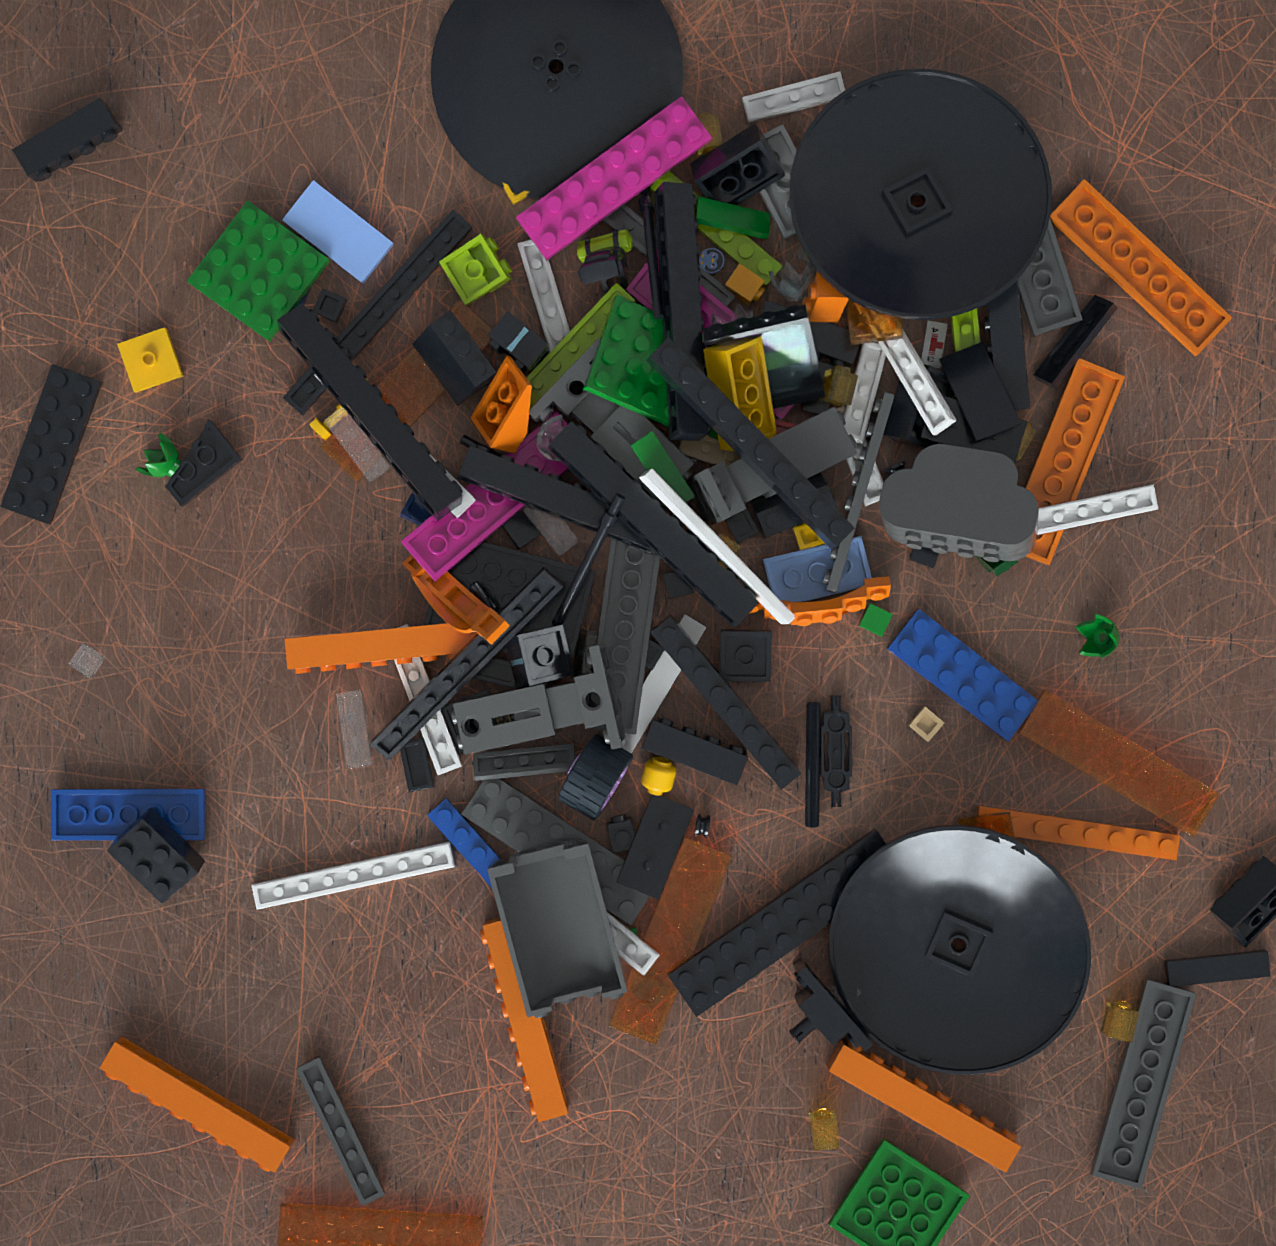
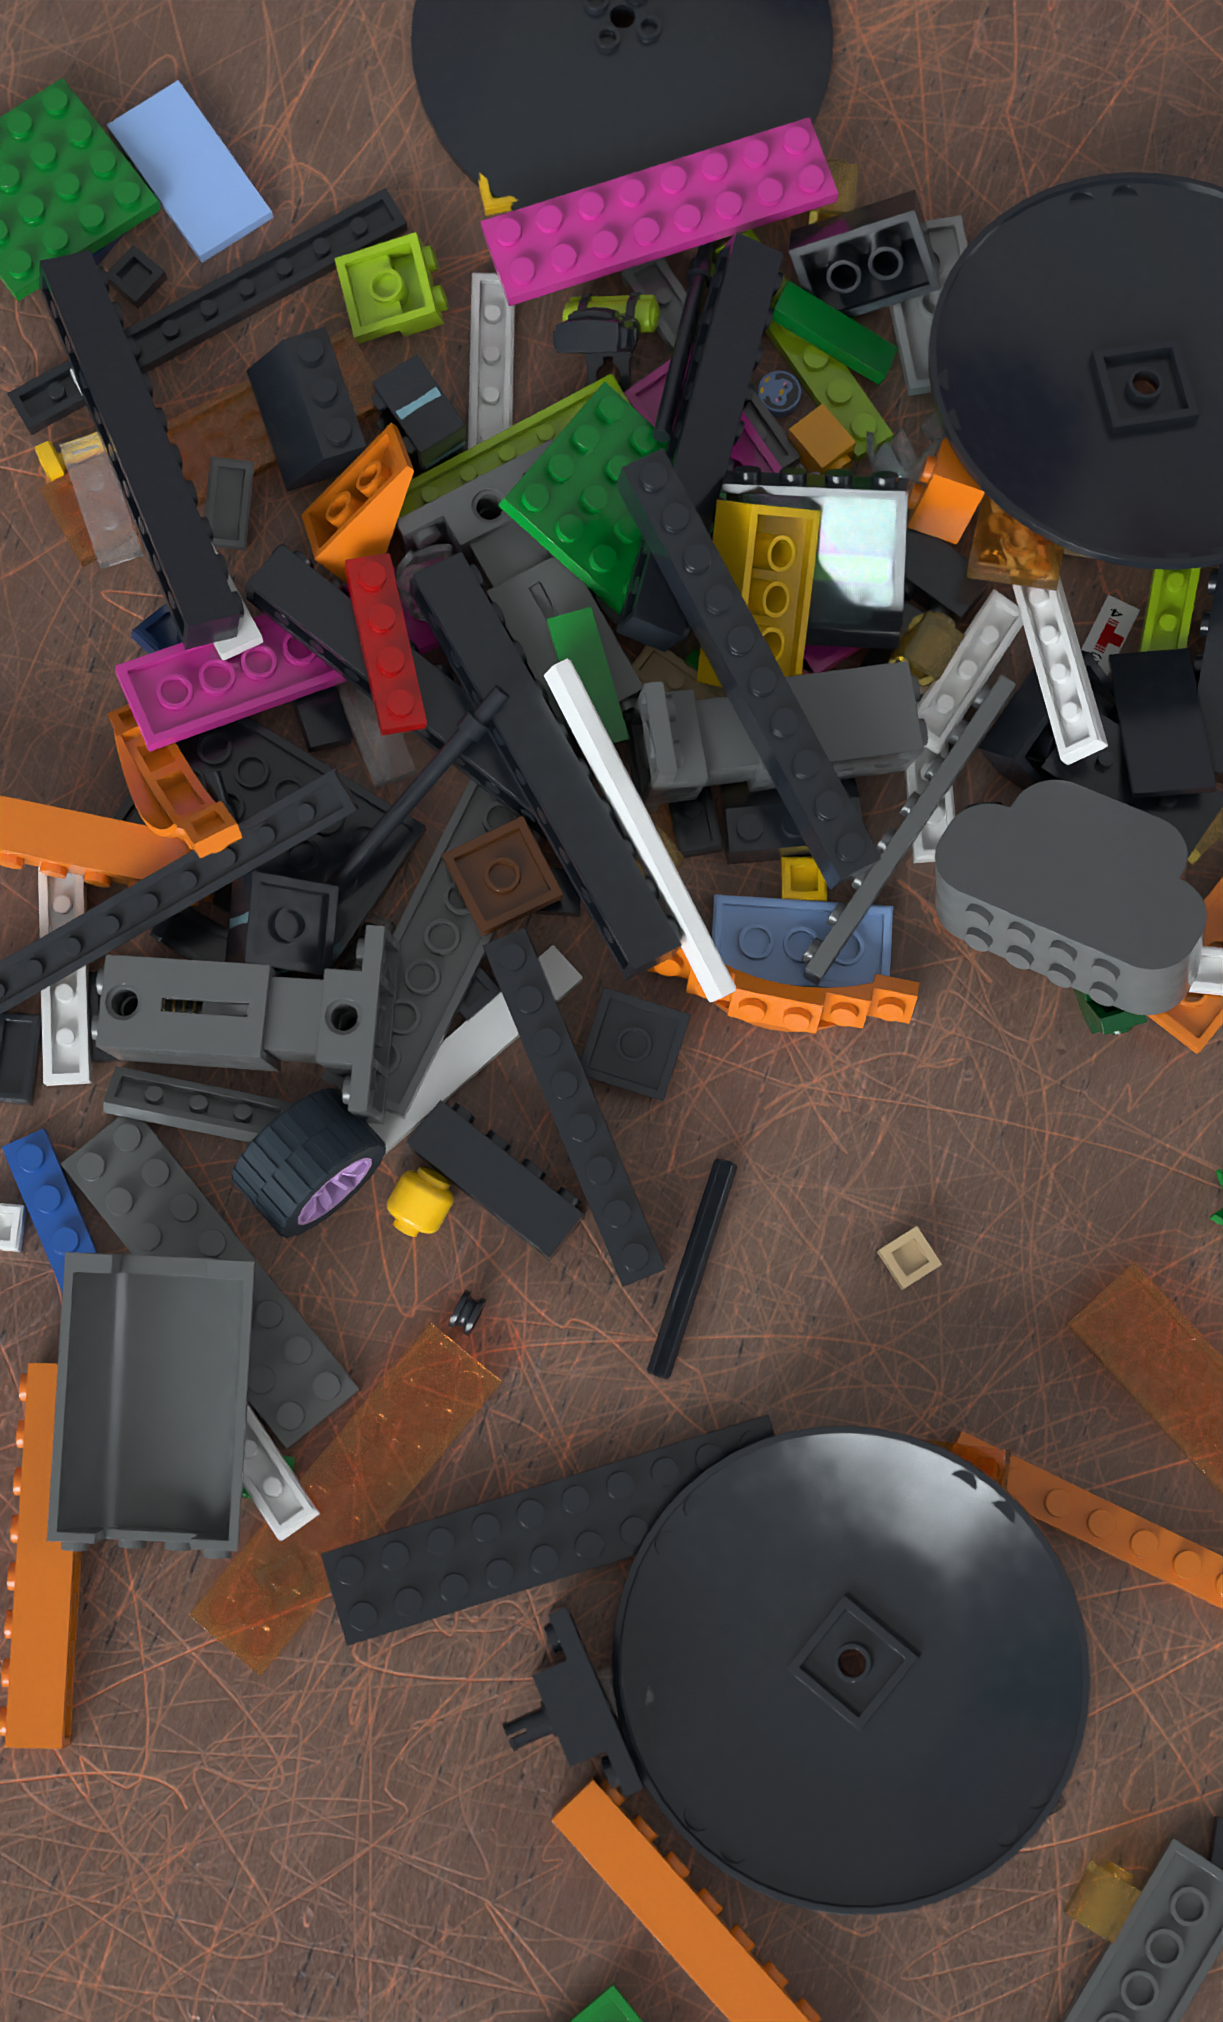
camera: 20 degrees right, 10 degrees down
(427, 421) = (229, 501): none -> dark grey tile
(545, 484) = (385, 644): none -> red plate
(620, 832) = (324, 1283): black bracket -> none
(647, 588) = (502, 876): none -> reddish brown plate
(655, 846) = (374, 1322): black piece -> none
(792, 97) = (982, 182): white tile -> none
(824, 1129) = (510, 1930): clear yellow brick -> none
(835, 777) = (725, 1304): black piece -> none
(875, 620) = (874, 1055): green tile -> none
(924, 556) = (991, 973): black tile -> none
(962, 675) = (998, 1195): blue plate -> none

